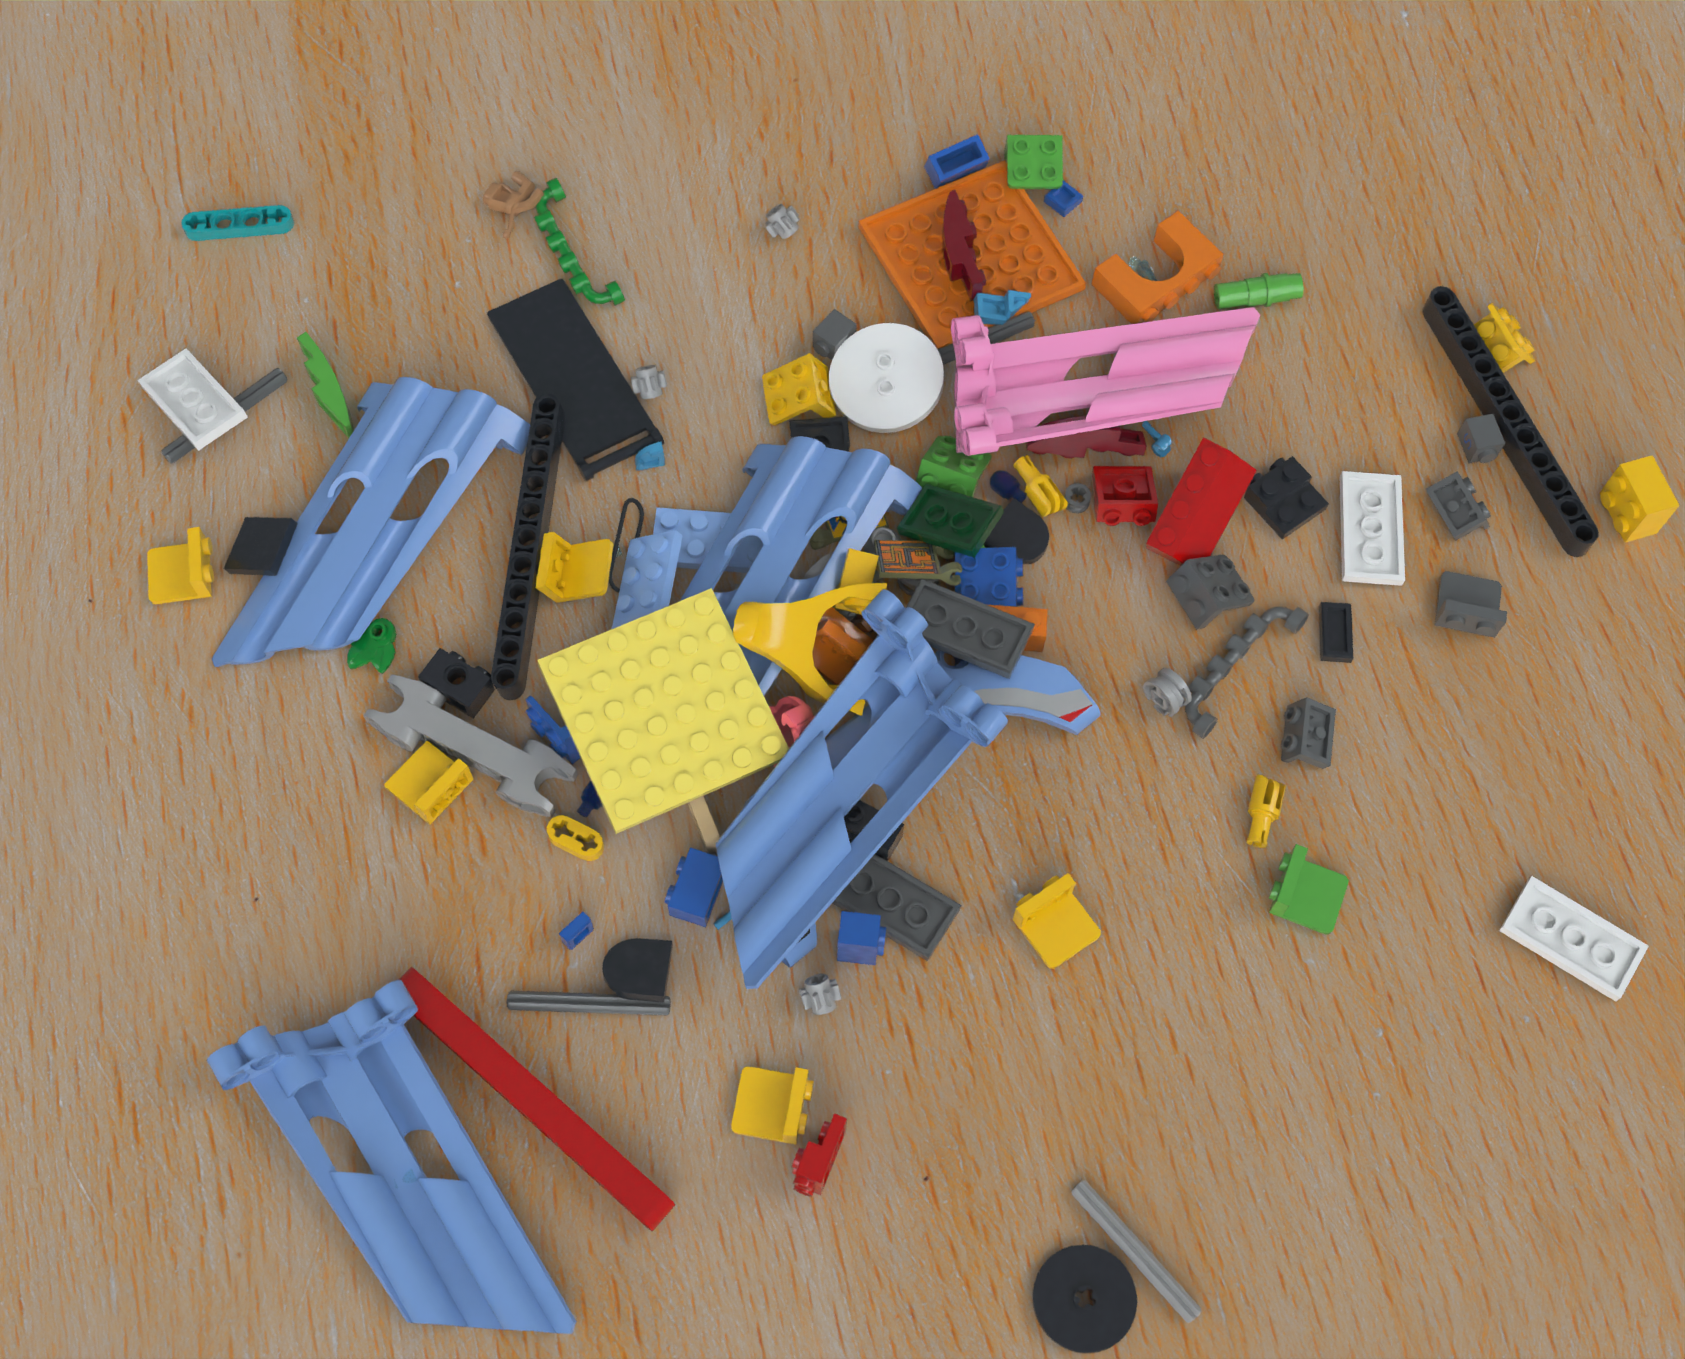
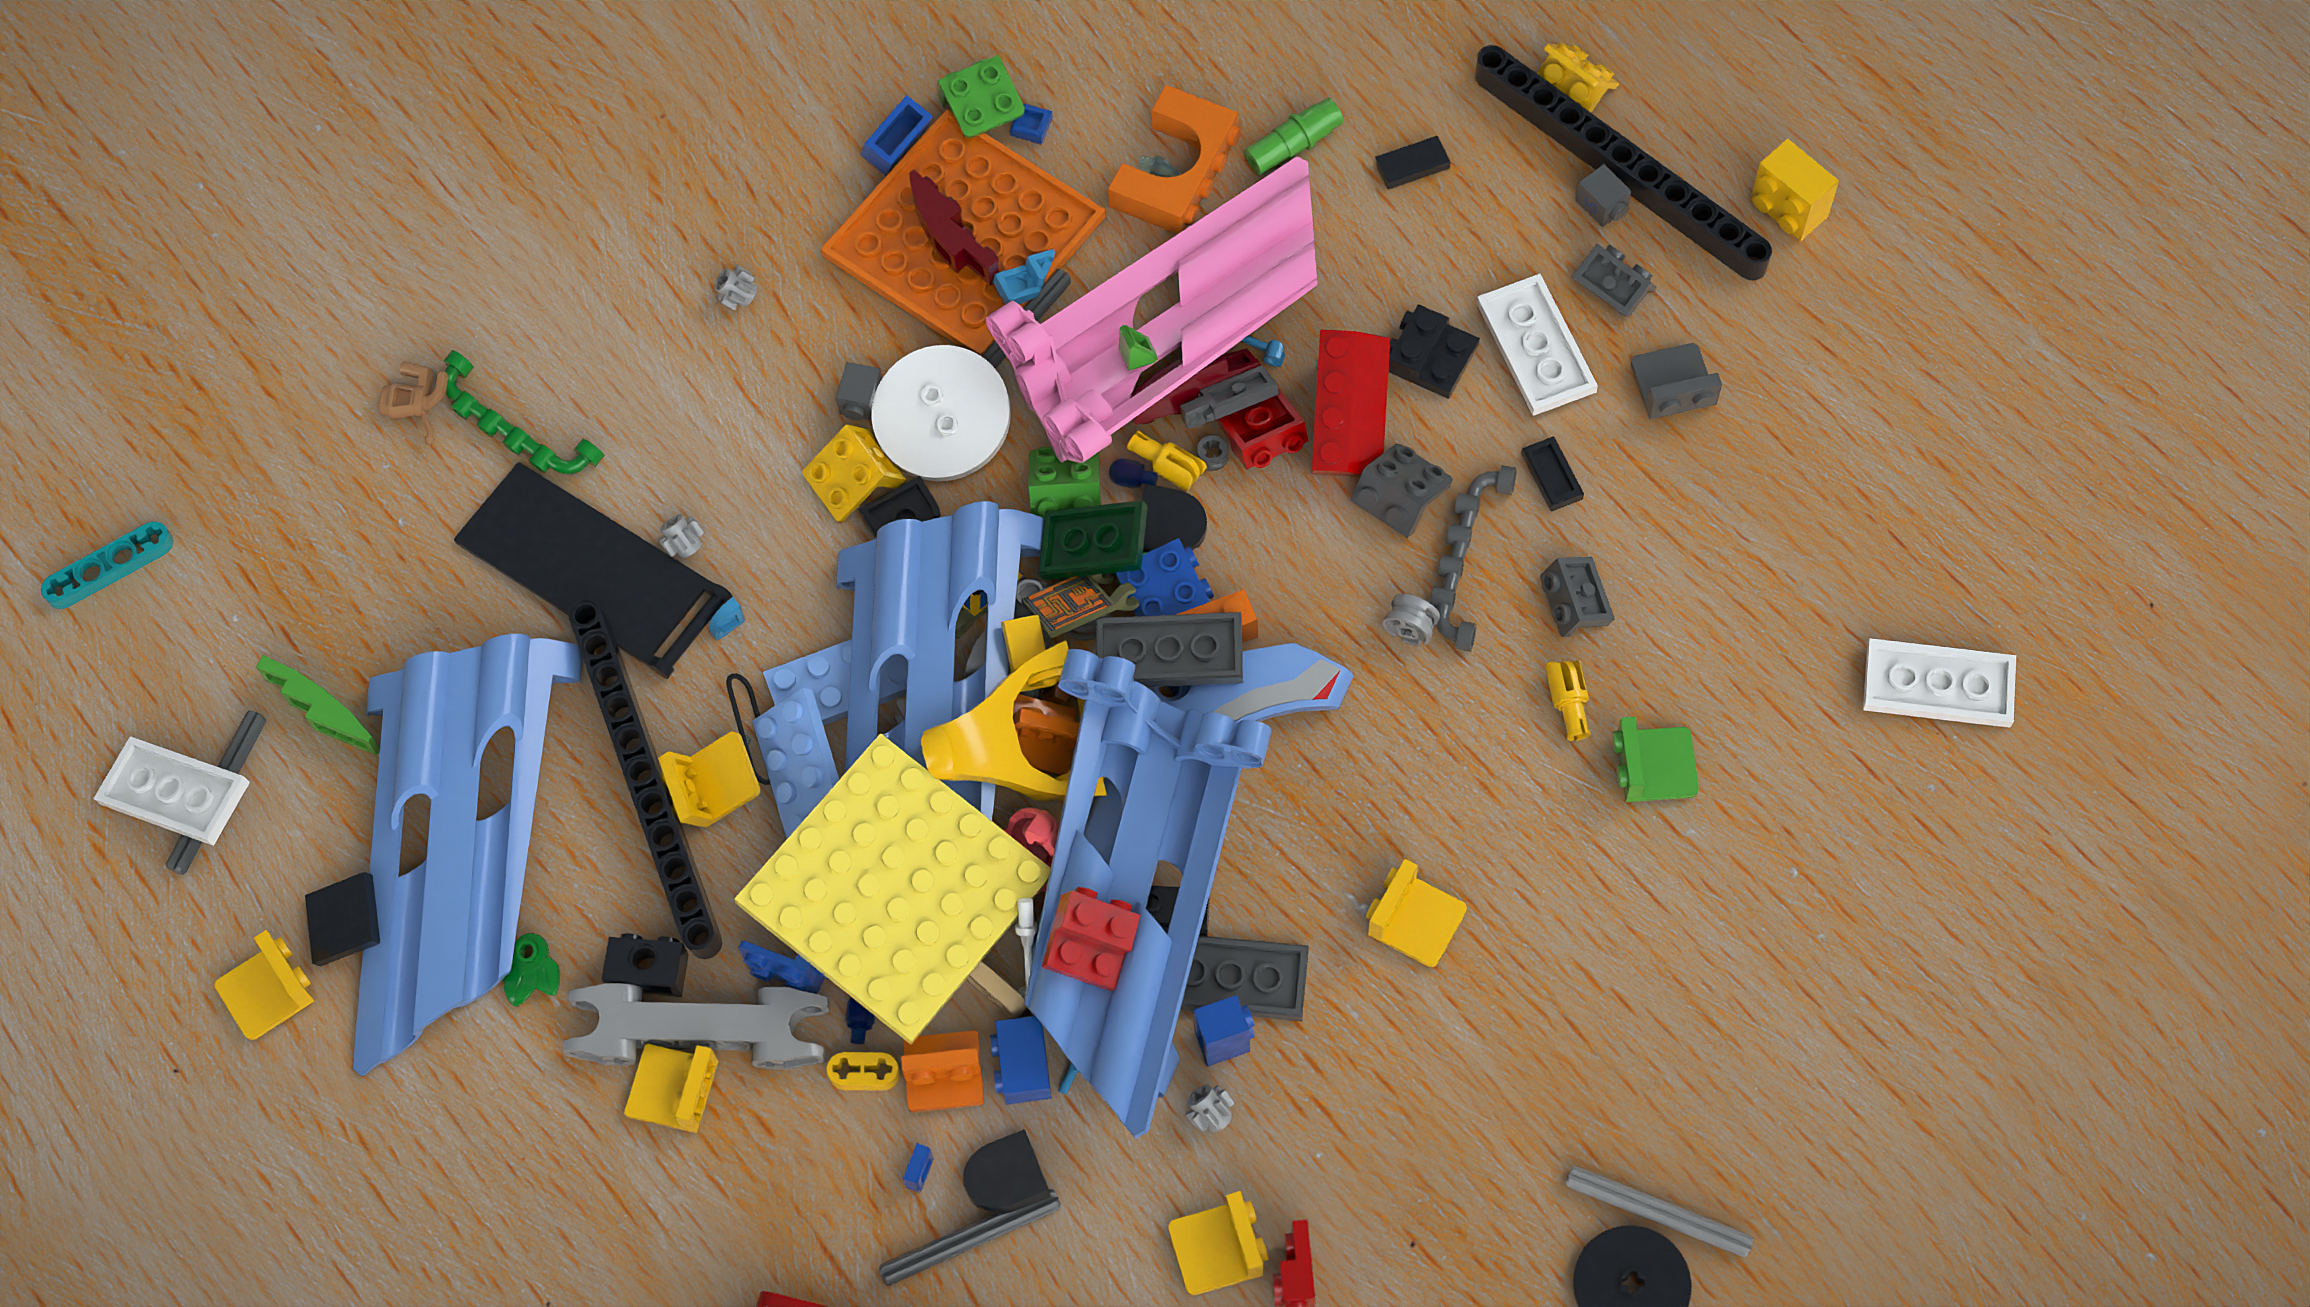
camera: 20 degrees left, 0 degrees up
(633, 866) = (943, 1071): none -> orange bracket
(749, 785) = (1026, 929): none -> white piece
(789, 817) = (1090, 938): none -> red plate
(1055, 392) = (1135, 348): none -> bright green slope
(1109, 460) = (1229, 396): none -> dark grey hinge
(1341, 350) = (1412, 162): none -> black tile

